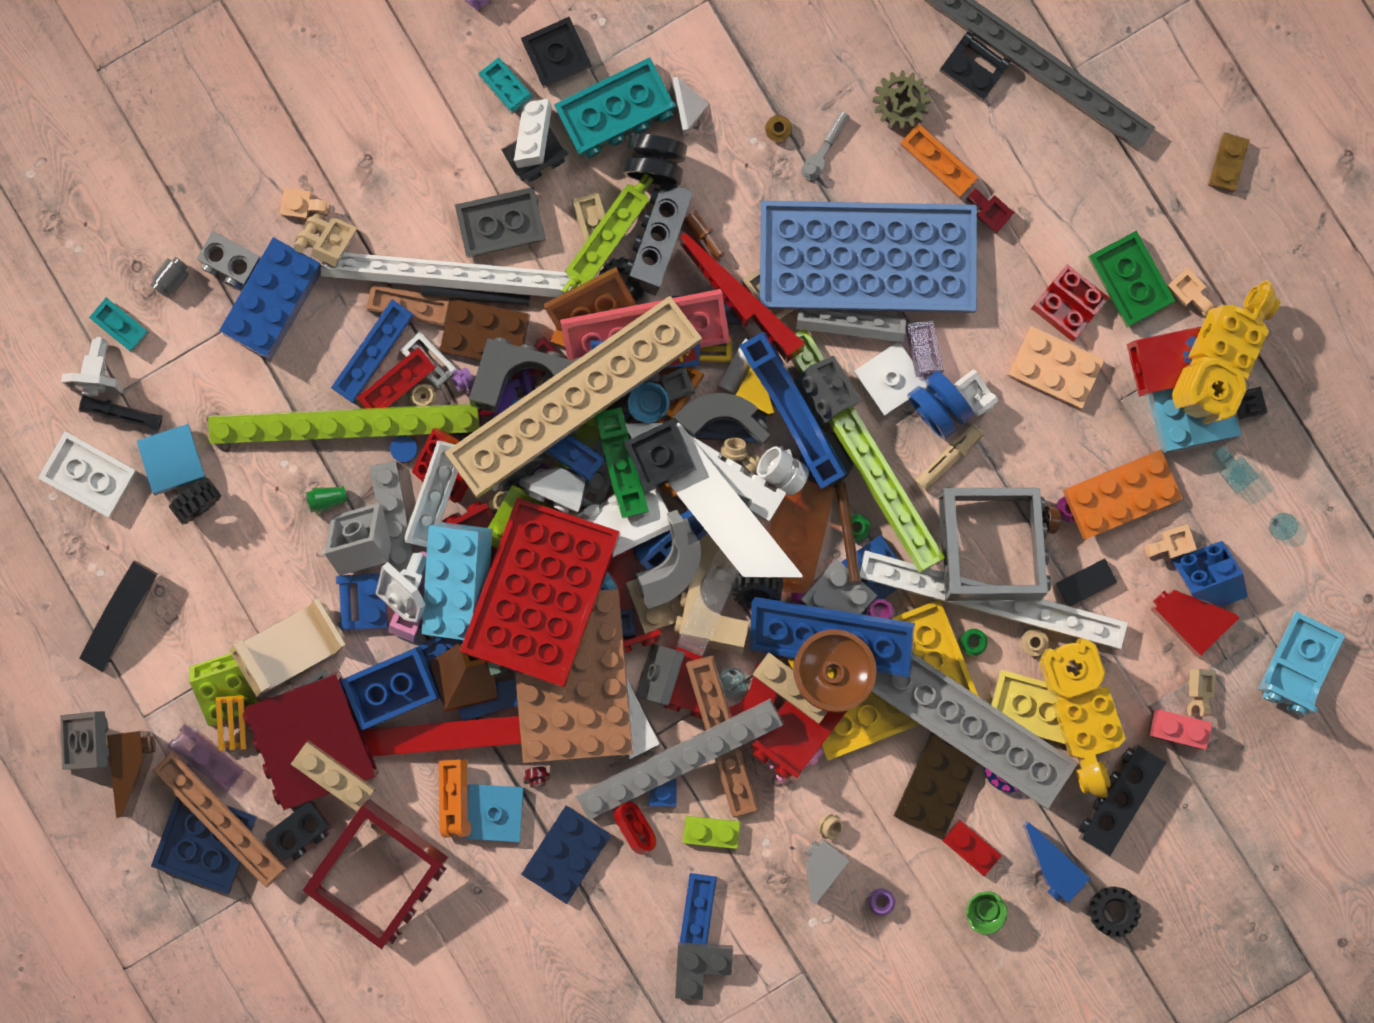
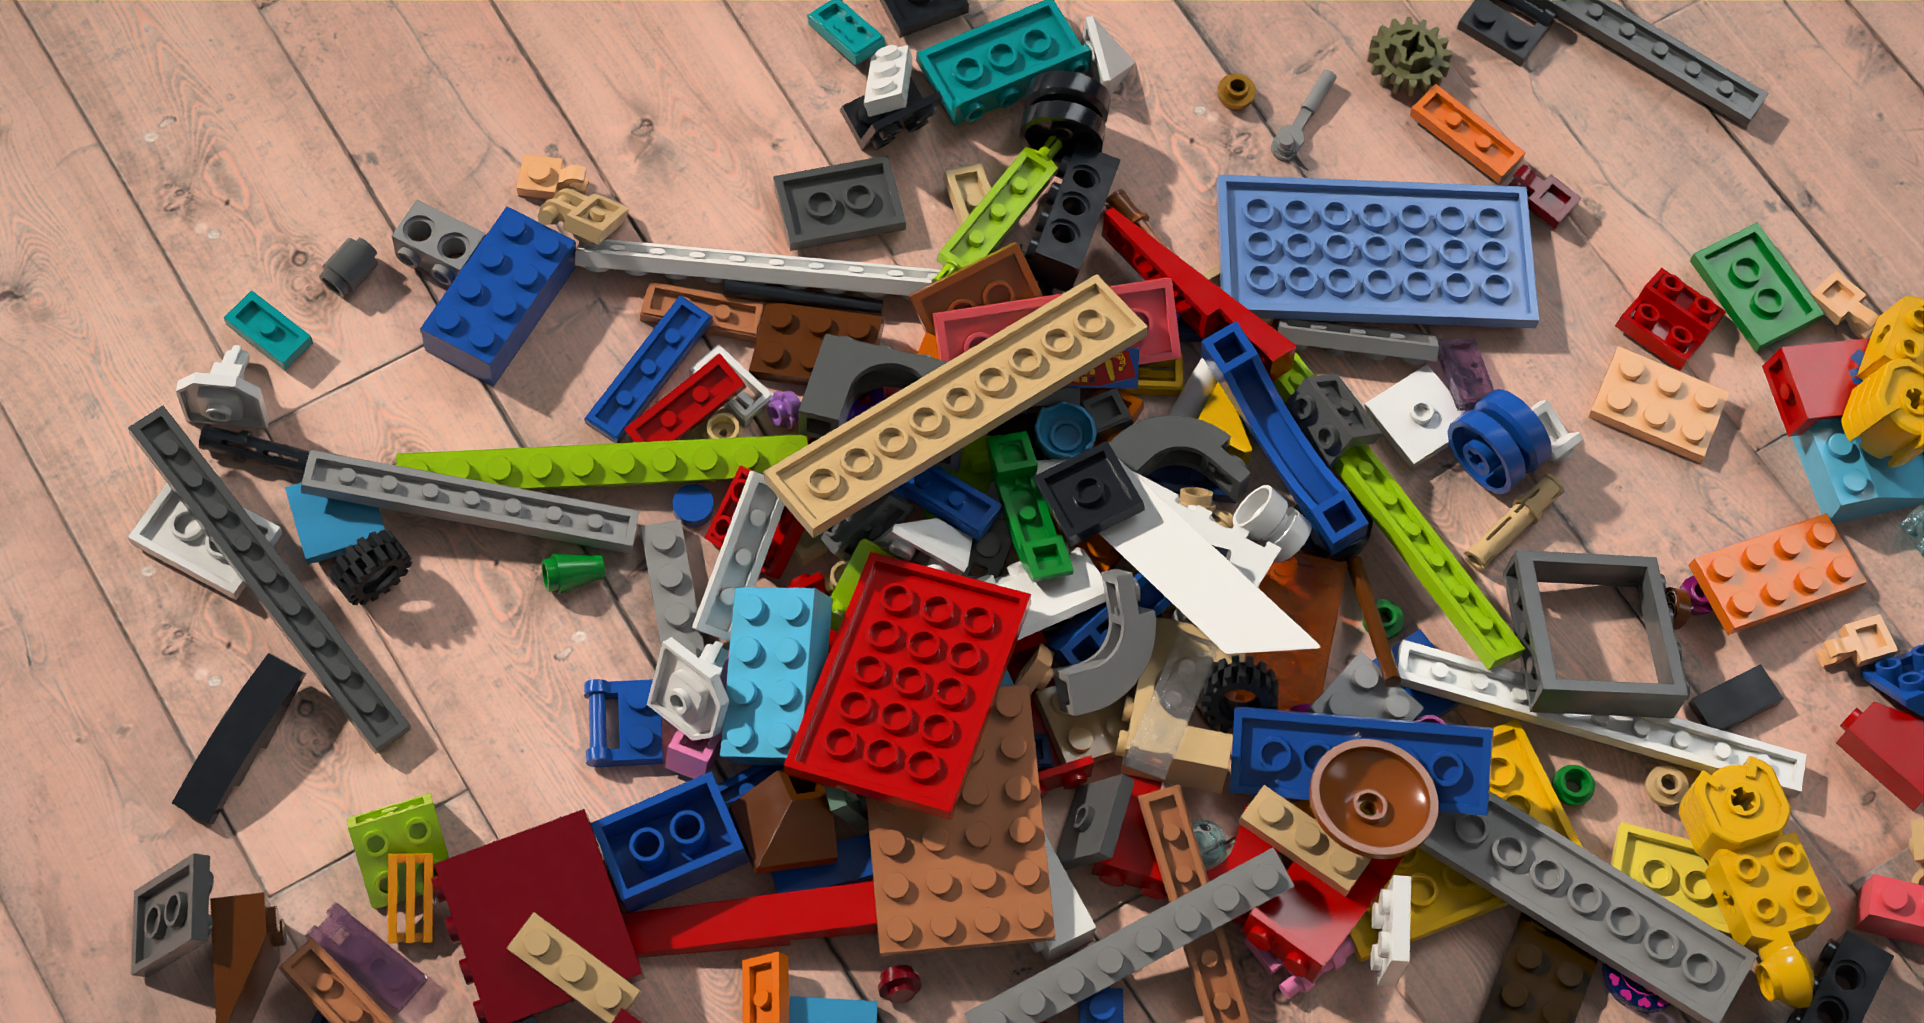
camera: 10 degrees left, 20 degrees down
(129, 508) = (269, 579): none -> dark grey plate
(257, 453) = (469, 501): none -> light grey plate
(288, 647) = (507, 782): tan panel -> none
(358, 539) = (621, 627): light grey slope -> none
(625, 572) = (1037, 670): none -> light nougat plate
(842, 762) = (1393, 921): none -> white plate
(1228, 162) = (1874, 143): pearl gold plate -> none

